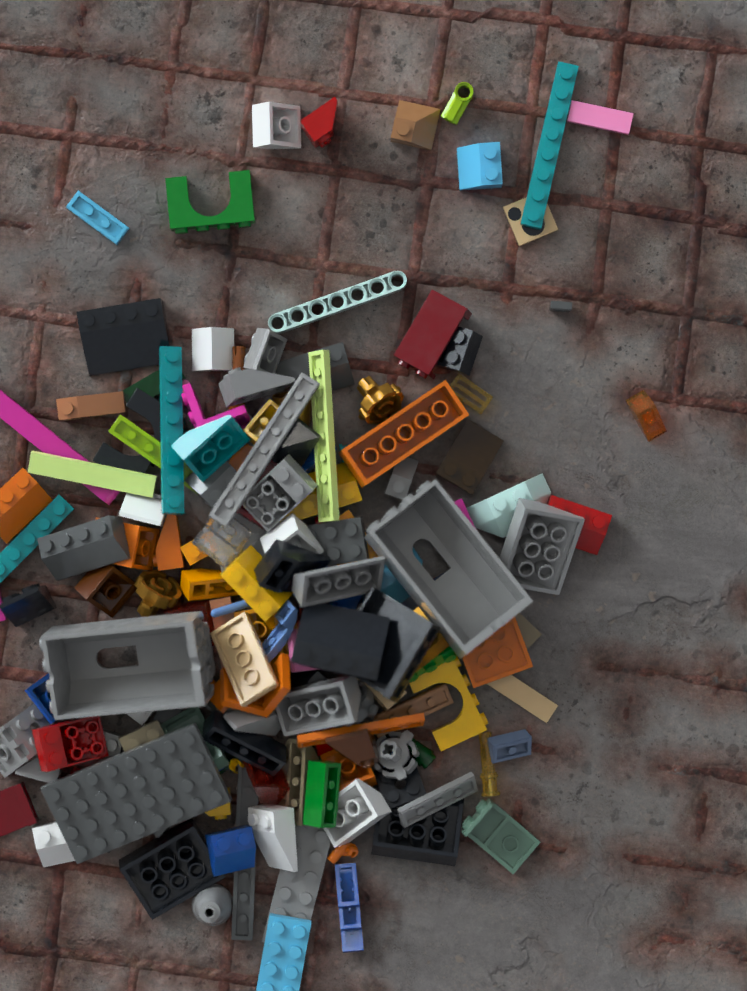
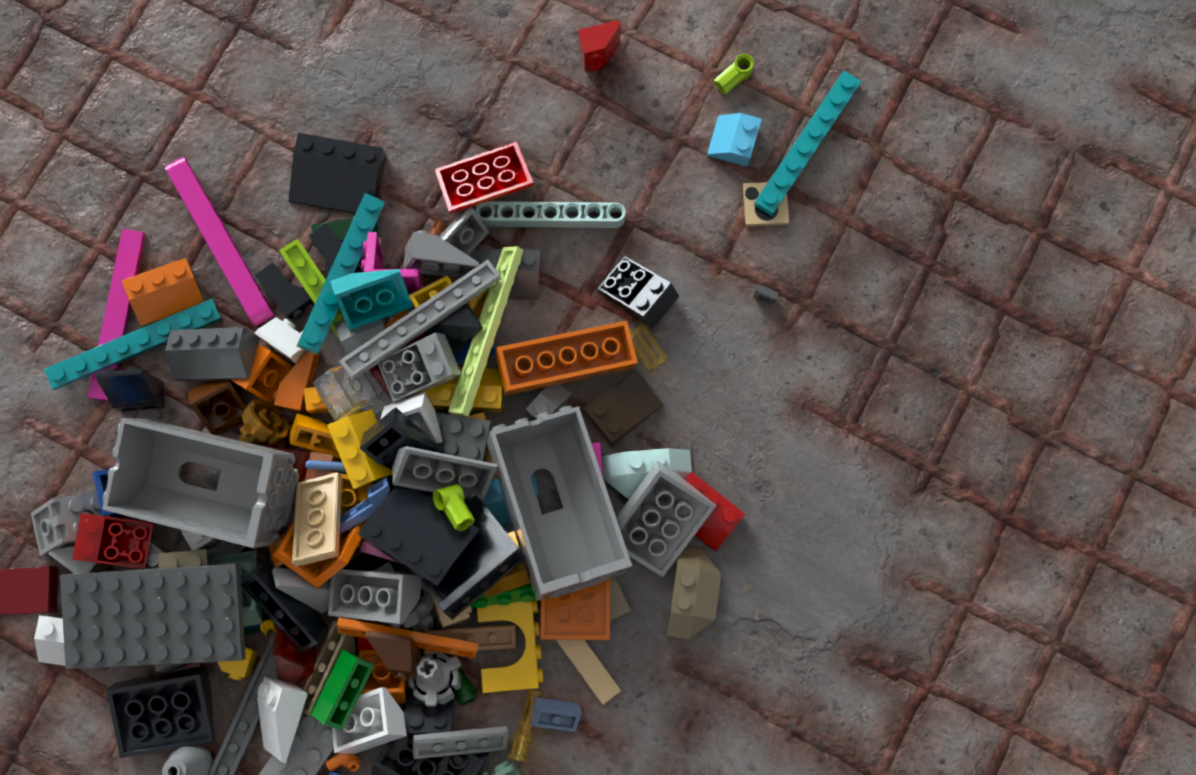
camera: 20 degrees right, 10 degrees down
(90, 406) = (275, 225): nougat slope -> none
(92, 474) = (249, 287): yellowish green tile -> none
(97, 217) = (357, 61): medium azure tile -> none
(212, 349) = (414, 214): white slope -> none
(231, 849) = (228, 715): blue slope -> none
(238, 212) = (488, 100): green arch -> none
(266, 294) = (483, 177): none -> red slope
(276, 126) = (555, 36): white slope -> none
(356, 602) = (452, 502): none -> lime piece
(378, 400) = (553, 316): pearl gold piece -> none
(415, 125) = (685, 81): medium nougat slope -> none
(430, 334) = (628, 273): dark red panel -> none
(590, 599) = (693, 594): none -> dark tan wedge
(600, 117) = (865, 135): bright pink tile -> none
(646, 415) = (813, 430): clear orange slope -> none

